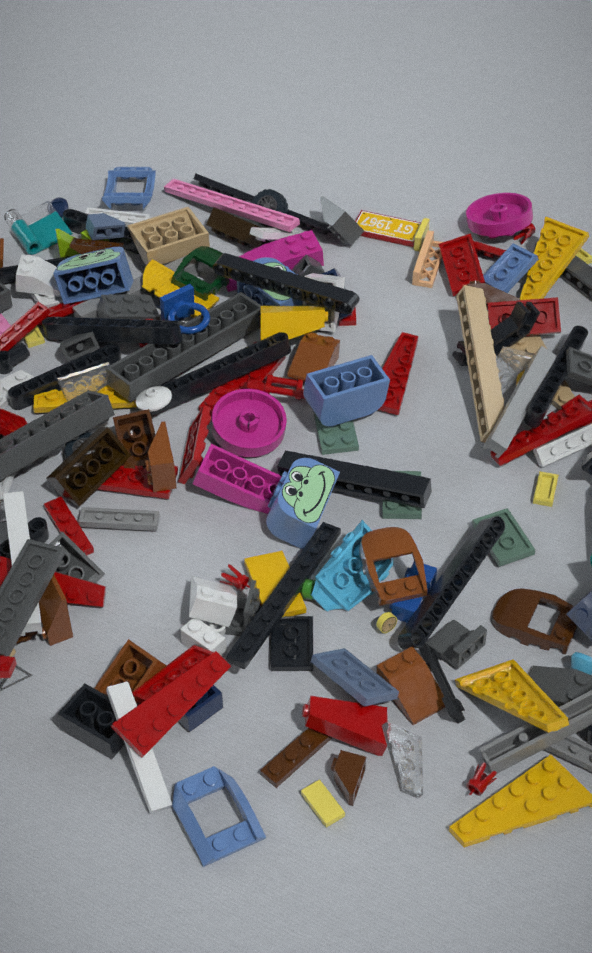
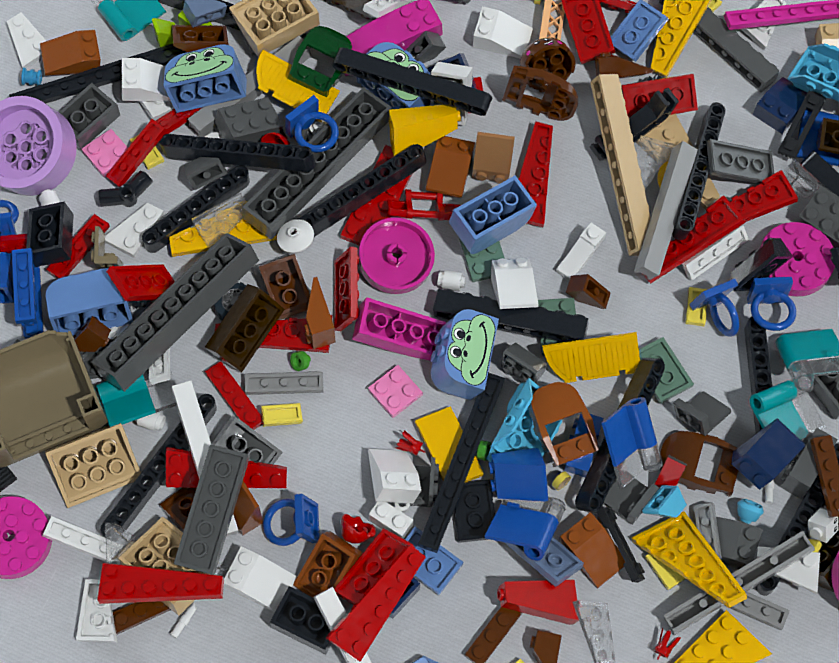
camera: 10 degrees left, 20 degrees up
(51, 679) = (258, 579): none -> white slope
(111, 544) = (281, 414): none -> light yellow tile
(115, 630) = (305, 520): none -> blue tile
(139, 501) = (300, 360): none -> bright green tile
(165, 647) = (355, 531): none -> red hair
(229, 535) = (395, 391): none -> bright pink plate
(242, 687) = (437, 567): none -> medium blue plate
(301, 446) = (451, 280): none -> white brick
(340, 608) = (519, 475): none -> blue slope
(347, 648) = (527, 524): none -> blue door
(354, 341) = (493, 157): none -> medium nougat slope
(354, 511) = (522, 363): none -> dark grey slope
(361, 448) = (514, 283): none -> white slope
(378, 267) = (501, 33): none -> white slope
(417, 282) = (550, 56): none -> reddish brown cylinder
(426, 311) = (558, 100): none -> reddish brown slope
(434, 434) = (581, 251): none -> white slope
(434, 515) = (594, 357): none -> yellow piece
(436, 465) = (588, 291): none -> reddish brown slope
(462, 585) = (632, 441): none -> blue door
(490, 715) = (667, 575): none -> light yellow tile
(493, 647) = (666, 502): none -> medium azure slope
(500, 625) = (670, 472): none -> red tile
(537, 669) = (707, 525): none -> light grey tile
(539, 575) = (702, 412): none -> dark grey bracket
(565, 472) = (715, 297): none -> blue tile

